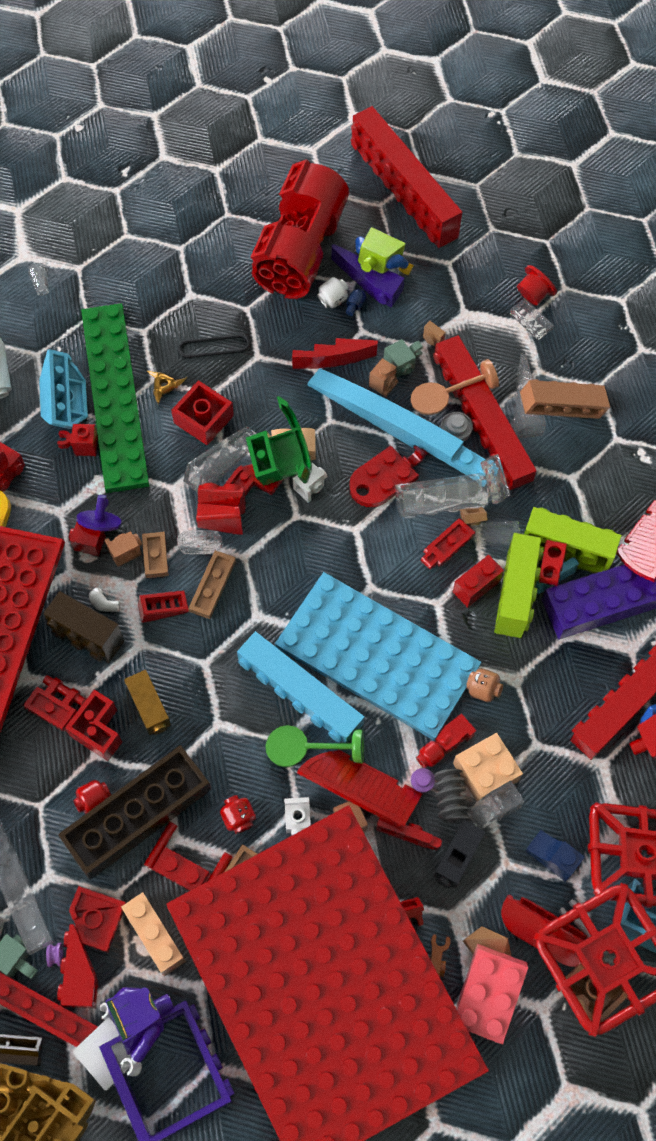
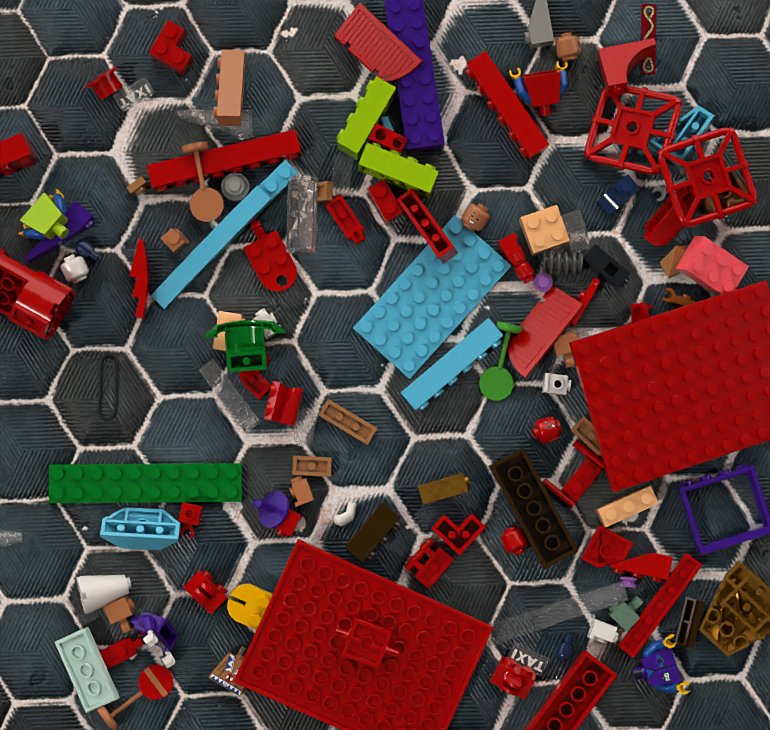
camera: 85 degrees left, 20 degrees up
(92, 1058) = (706, 561): white sticker -> none
(137, 1022) = (690, 524): dark purple torso -> none
(163, 612) = (358, 482): red slope -> none
(171, 384) = (143, 429): pearl gold piece -> none
(202, 412) = (184, 406): red brick -> none
(403, 356) = (156, 221): sand green brick -> none
(459, 626) = (427, 226): none -> red brick
(495, 479) = (296, 166): clear tile -> none
(591, 338) = (167, 49): none -> red brick

